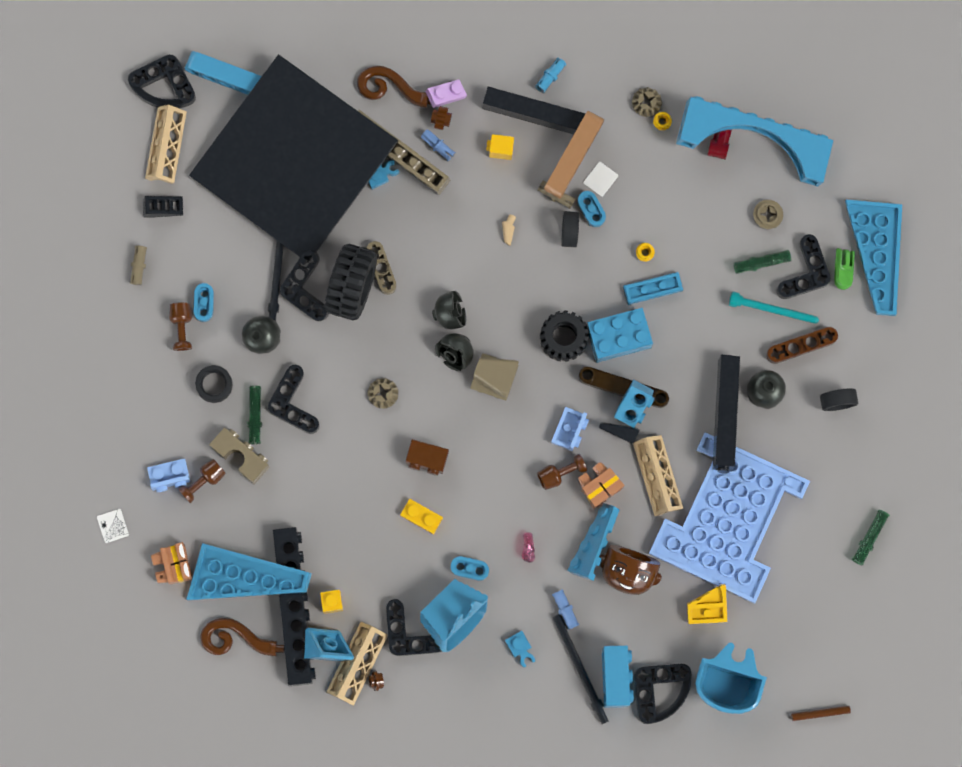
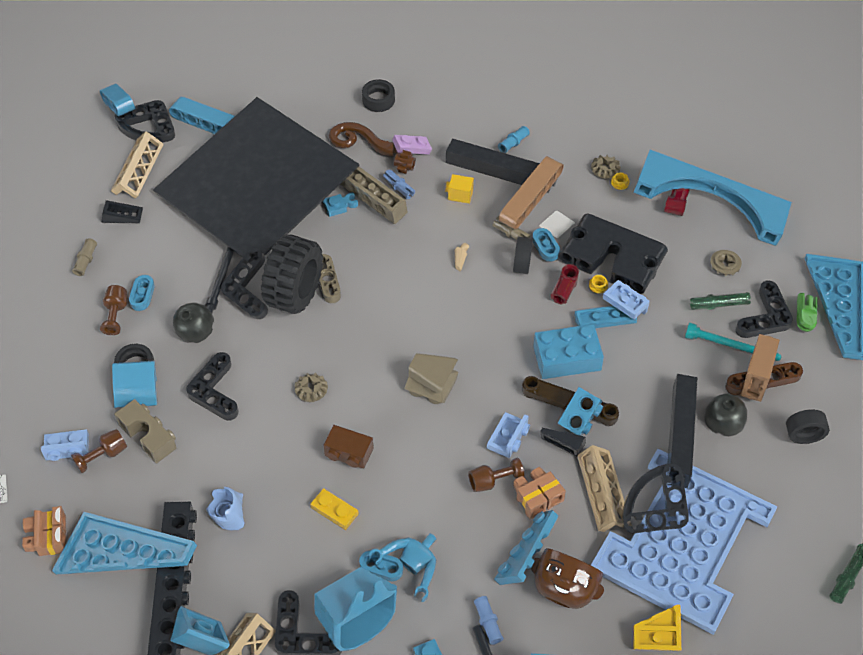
camera: 10 degrees right, 25 degrees down
(127, 61) = (117, 99): none -> dark azure beam
(220, 409) = (135, 382): none -> dark azure slope
(254, 414) = (169, 401): clear green pin -> none
(264, 647) = (129, 630): reddish brown plant -> none
(327, 527) = (227, 509): none -> light blue hair
(331, 601) = (216, 585): yellow brick -> none
(407, 13) = (378, 105): none -> black tyre
(449, 311) = (390, 315): pearl dark grey cylinder -> none
(455, 350) = (392, 351): pearl dark grey cylinder -> none
(498, 558) = (414, 558): none -> dark azure piece
(528, 548) = (451, 550): clear pink arm -> none
(564, 320) = (512, 334): black tyre -> none
(612, 259) = (565, 284): none -> dark red piece
(672, 272) = (626, 300): none -> light blue bracket
(677, 209) = (635, 258): none -> black connector
(717, 496) = (671, 507): none -> black beam
(797, 344) = (760, 367): none -> medium nougat window

